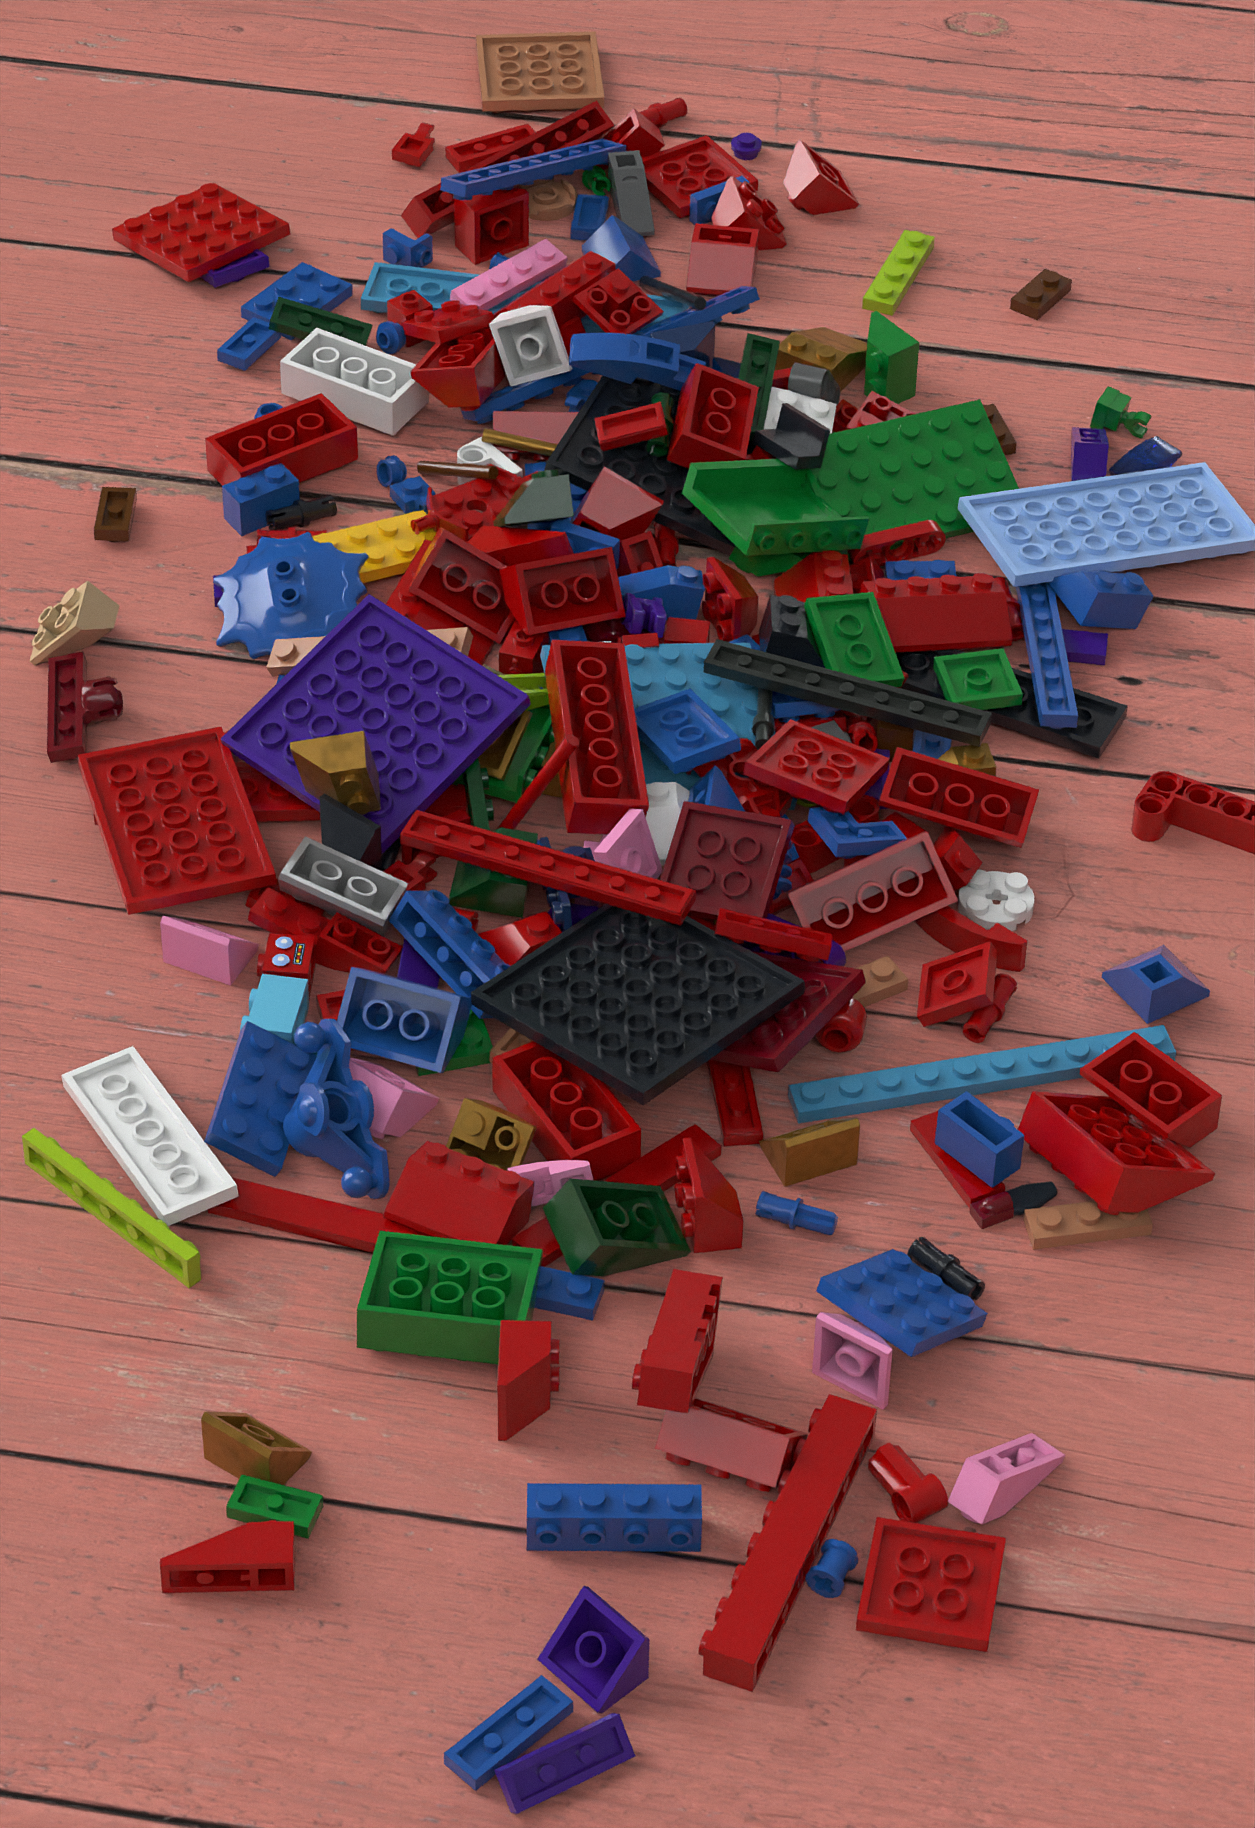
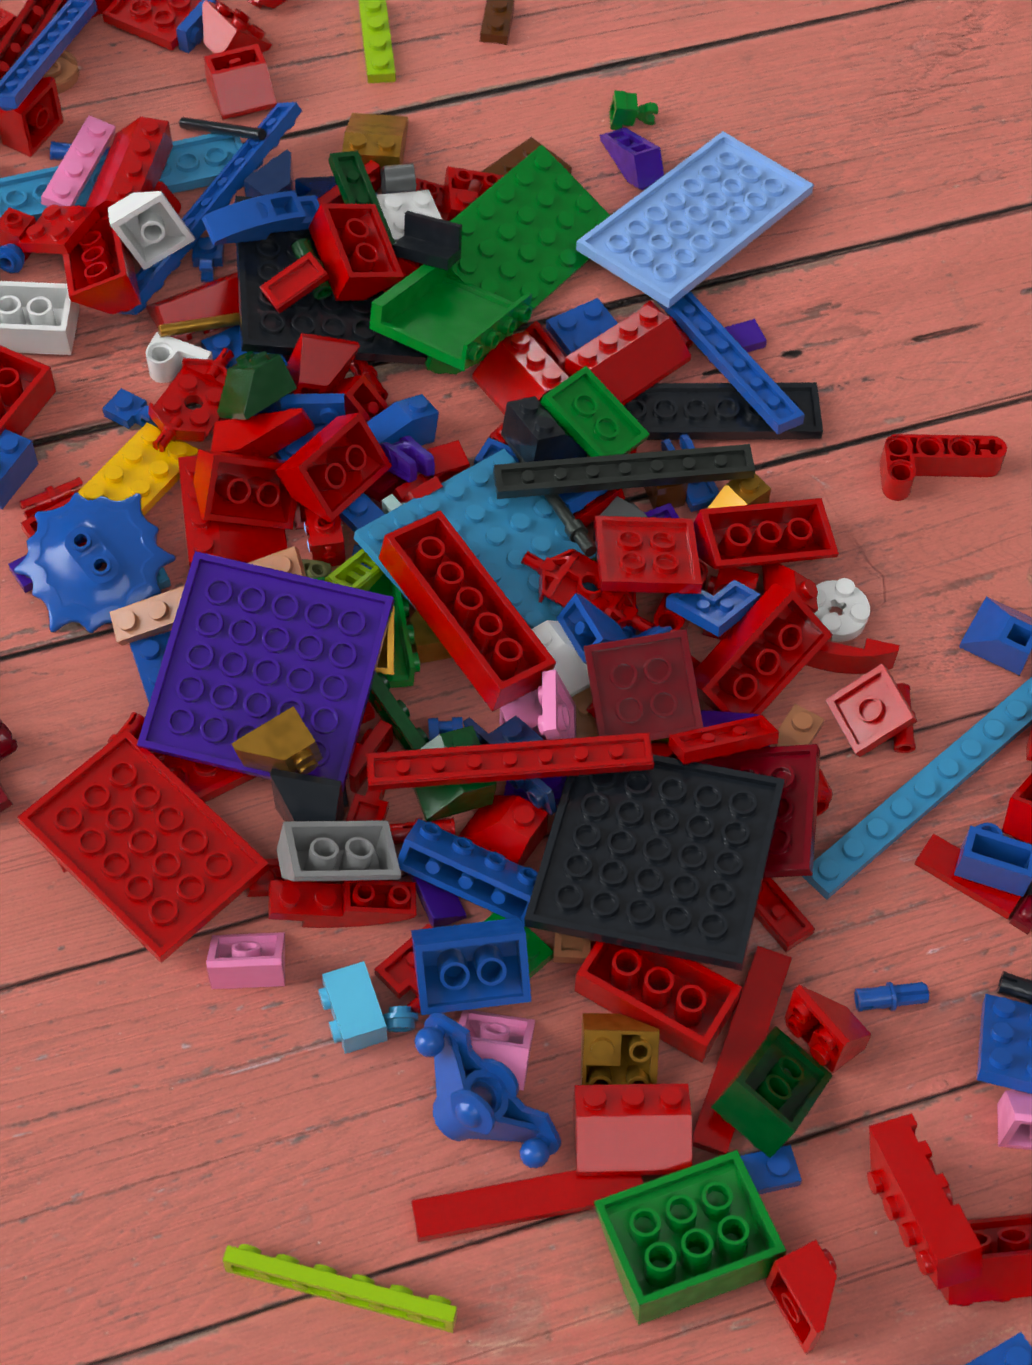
camera: 30 degrees left, 15 degrees up
(149, 1136) = (327, 1194): white plate -> none
(257, 1097) = (397, 1105): blue plate -> none
(289, 957) = (328, 945): red head -> none
(301, 512) = (44, 467): black pin -> none
(391, 471) = (94, 393): blue plate -> none
(457, 470) = (152, 372): reddish brown bar -> none
(540, 782) = (444, 677): red bar -> none
(551, 1176) = (706, 1065): bright pink slope -> none
(588, 215) = (99, 76): blue tile -> none
(596, 185) = (86, 41): green pin -> none
(617, 304) = (195, 161): red slope -> none
(624, 247) = (145, 97): blue slope -> none
(630, 191) = (123, 44): dark grey slope -> none
(684, 731) = (531, 569): blue plate -> none
(729, 601) = (460, 415): red slope -> none
(813, 1150) = (859, 922): pearl gold slope -> none
(862, 733) = (647, 501): red pin -> none
(880, 543) = (551, 296): red beam -> none
(890, 360) = (434, 130): green slope -> none
(978, 679) = (700, 409): green plate -> none
(1104, 598) = (736, 288): blue slope -> none
(1148, 455) = (677, 144): clear blue slope -> none

